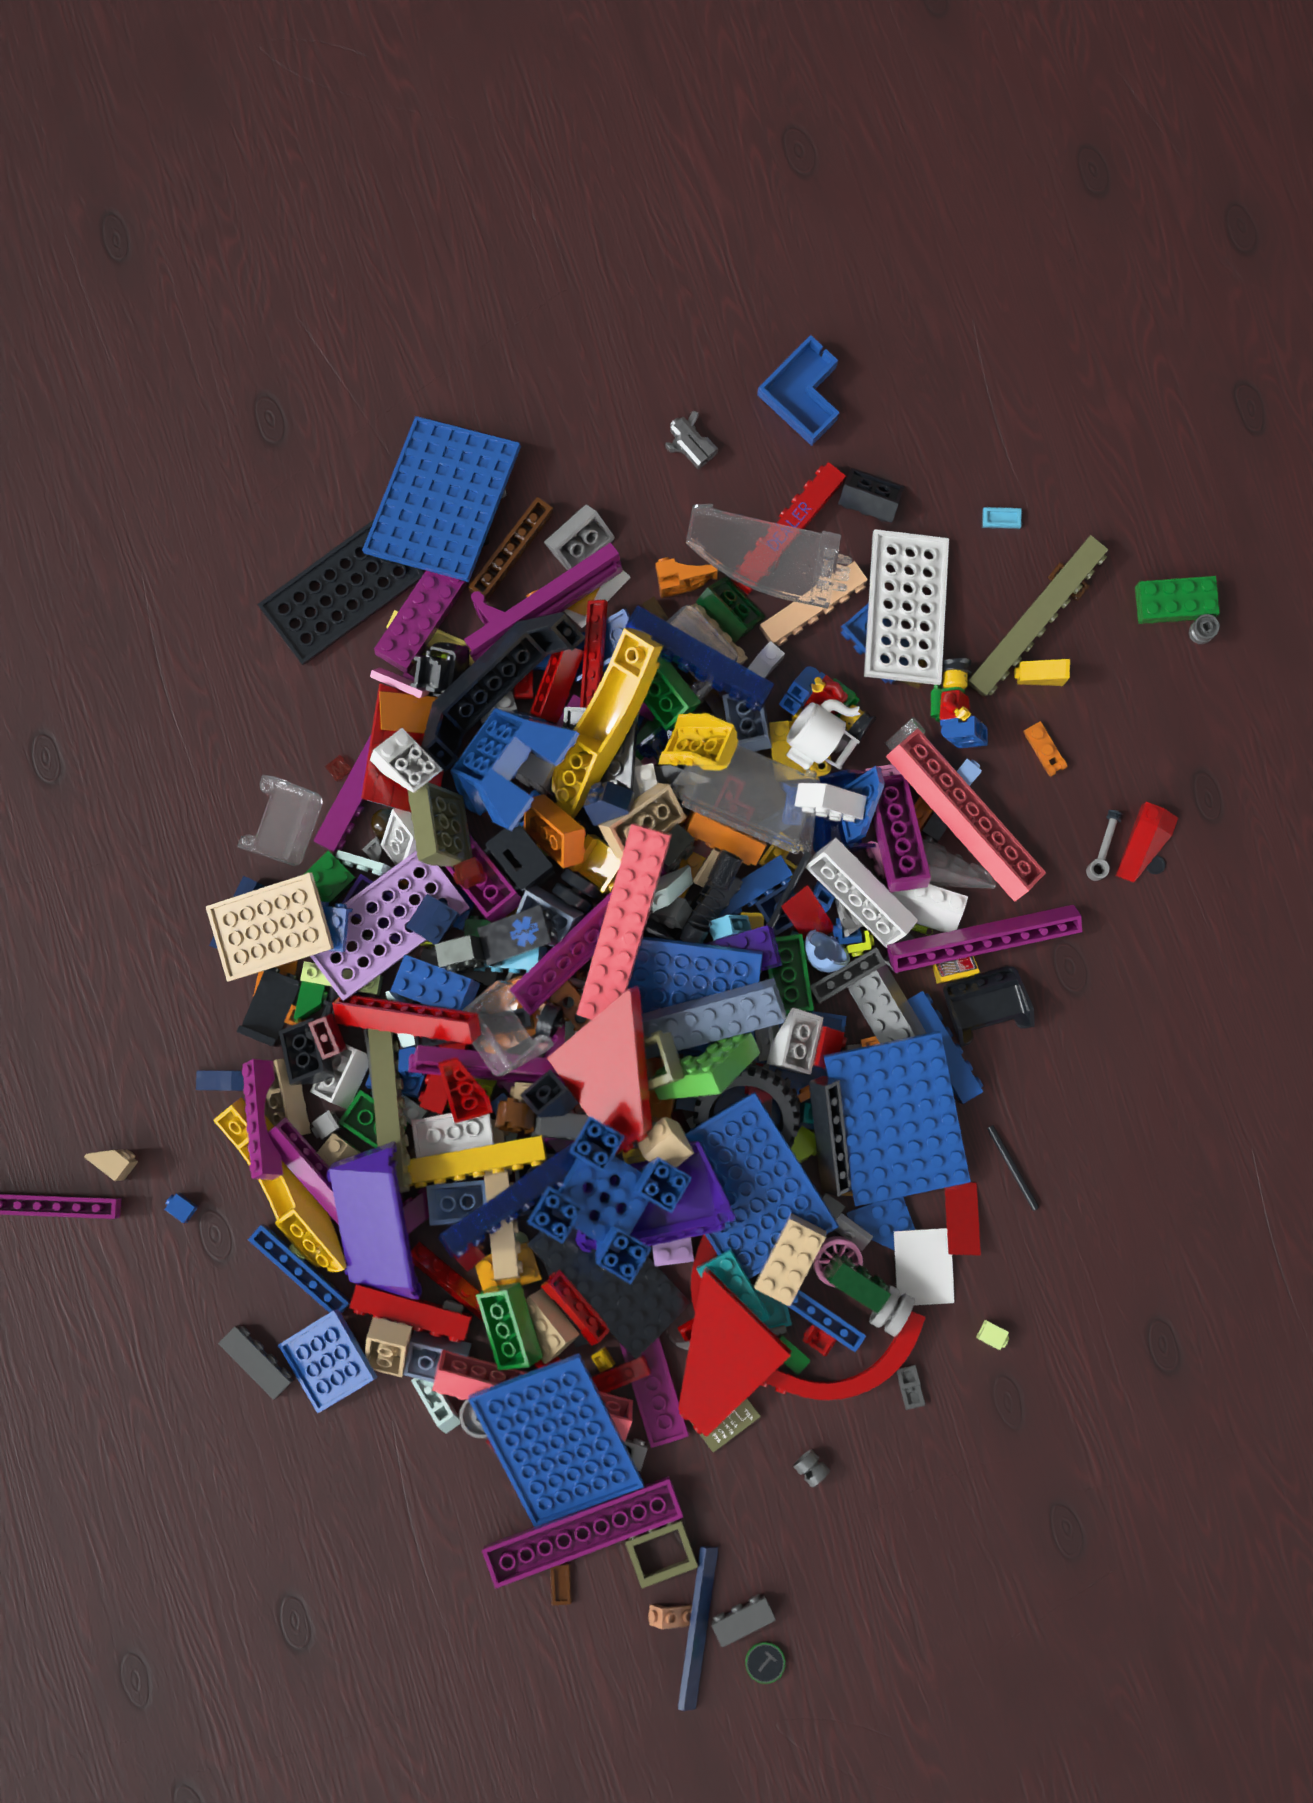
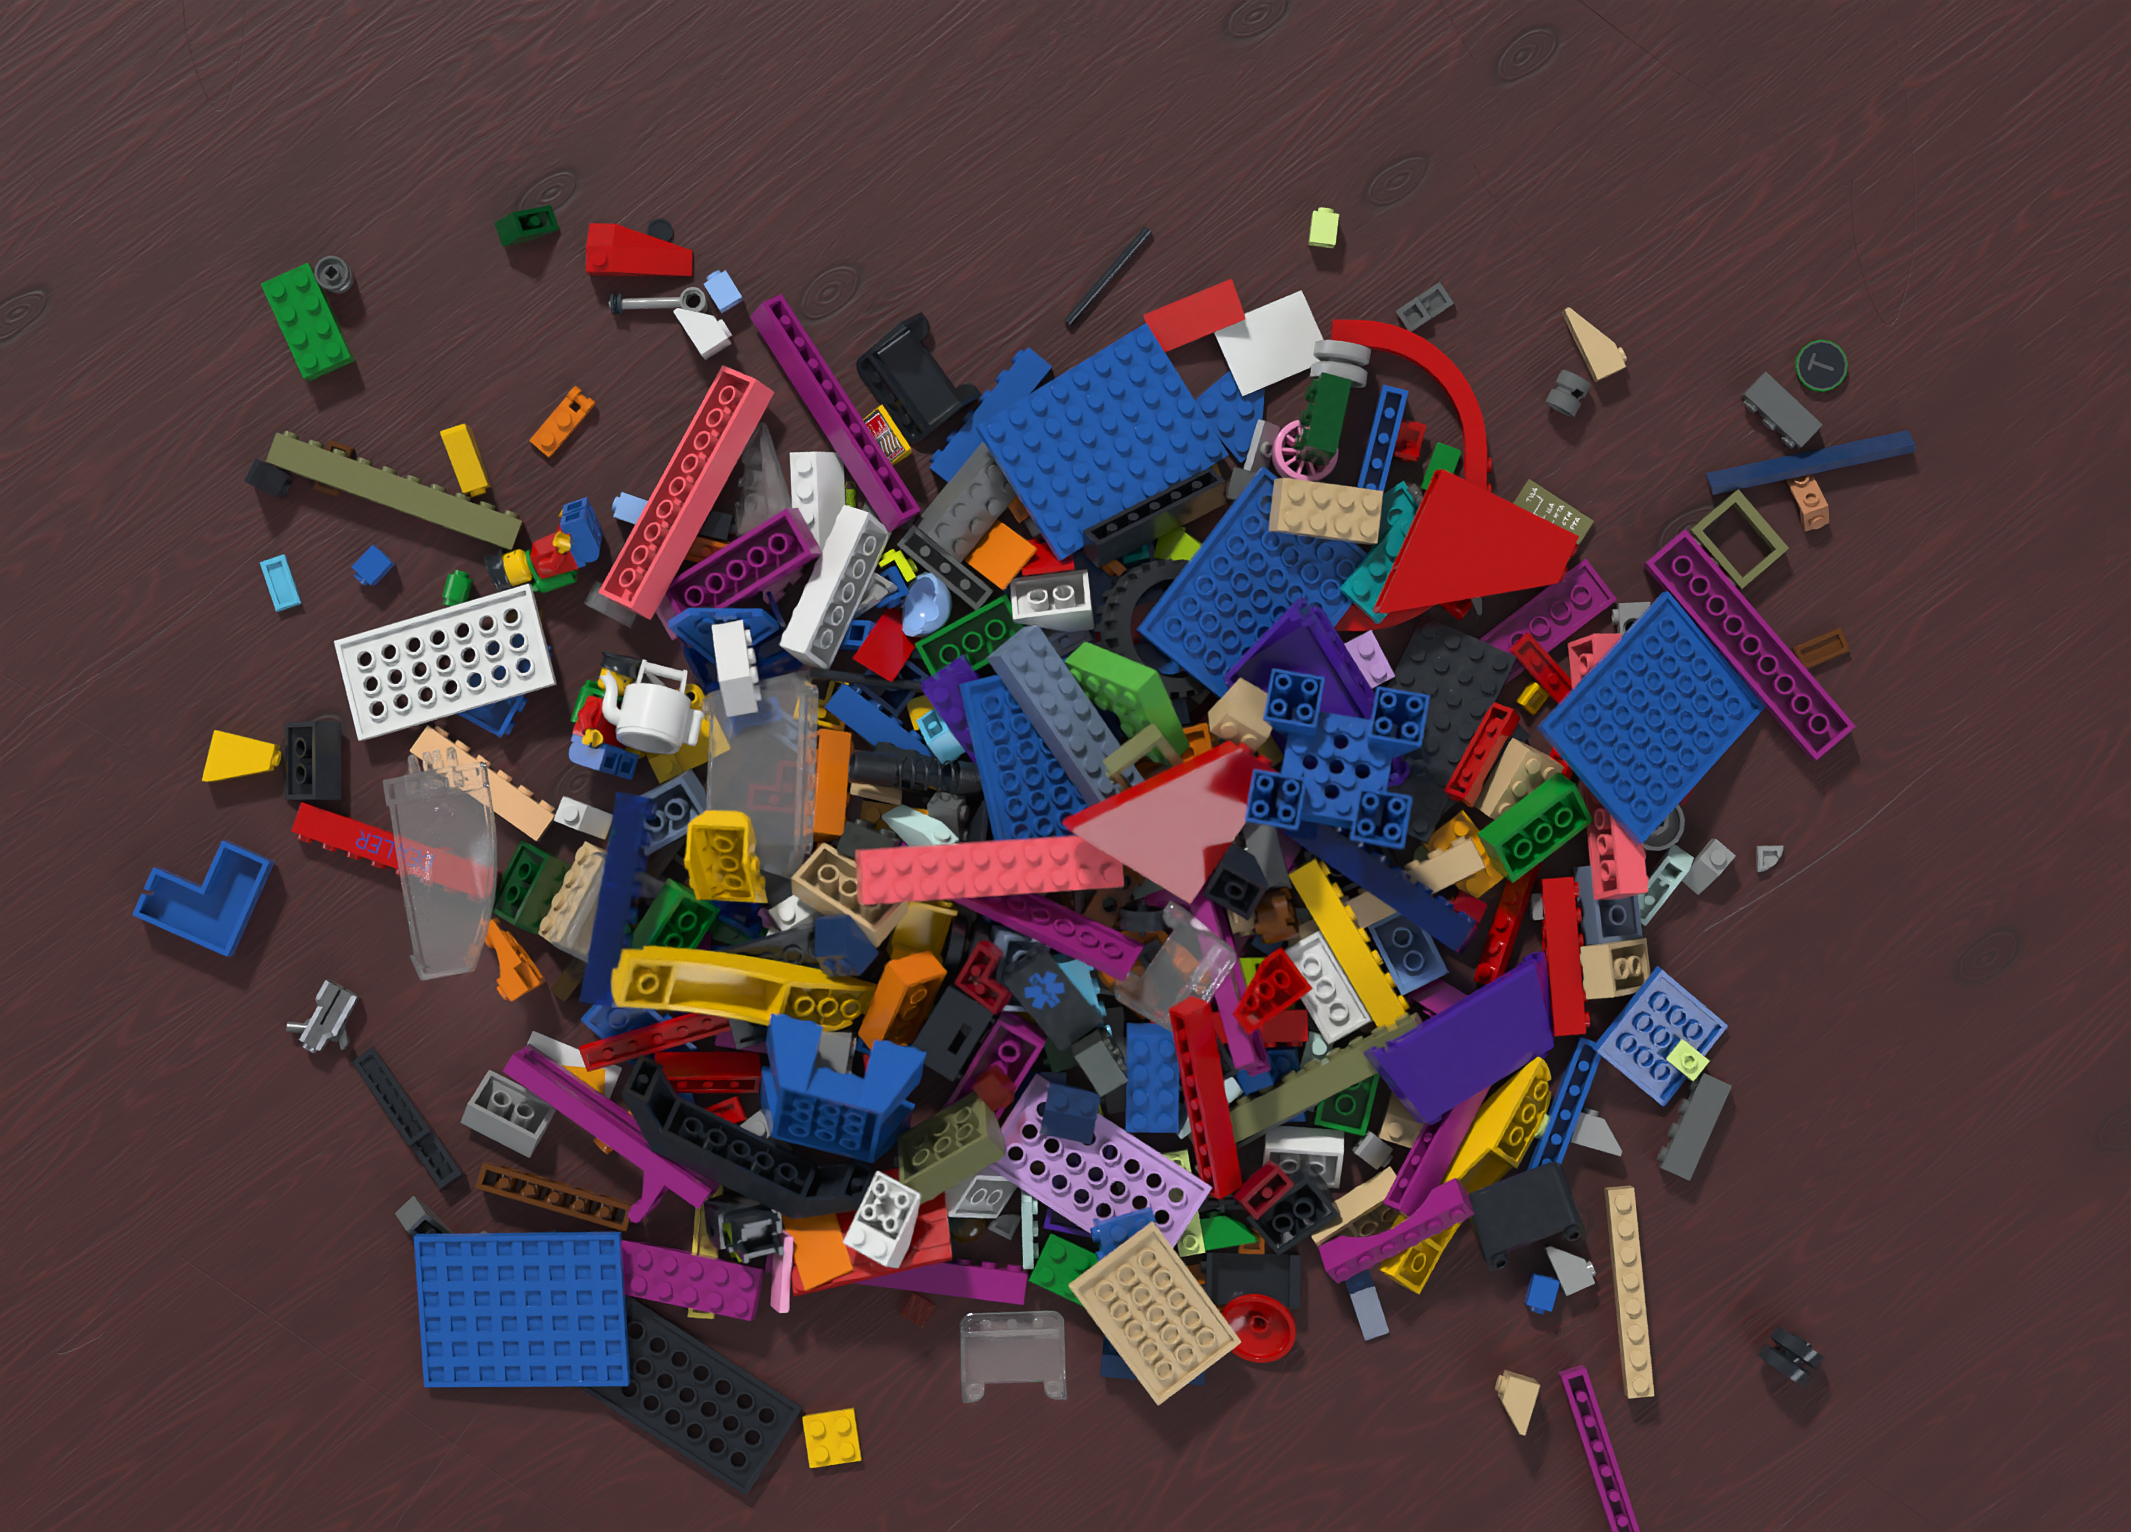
camera: 110 degrees left, 5 degrees up
(67, 1371) = (1791, 1356): none -> black wheel
(157, 1270) = (1629, 1291): none -> tan brick
(189, 1234) = (1570, 1269): none -> light grey slope
(233, 1000) = (1260, 1339): none -> red dish
(241, 1215) = (1523, 1212): none -> black windscreen
(273, 677) = (832, 1438): none -> yellow plate
(278, 1287) = (1594, 1133): none -> light grey slope
(303, 1374) = (1687, 1060): none -> yellowish green bracket
(427, 1488) = (1767, 857): none -> light grey tile
(436, 1442) = (1708, 866): none -> light grey slope
(530, 454) = (420, 1219): none -> dark grey slope
(548, 887) = (977, 980): none -> dark red brick
(601, 471) = (408, 1119): none -> black slope
(835, 1501) = (1596, 349): none -> tan slope
(843, 1017) = (1000, 554): none -> orange piece
(892, 446) = (238, 756): none -> yellow slope
(955, 634) = (457, 588): none -> green brick
(991, 583) = (372, 566): none -> blue brick
(1074, 868) = (704, 331): none -> white slope
(1077, 533) = (269, 479): none -> black slope
(1098, 892) = (722, 290): none -> light blue brick
(1192, 773) = (526, 225): none -> dark green slope

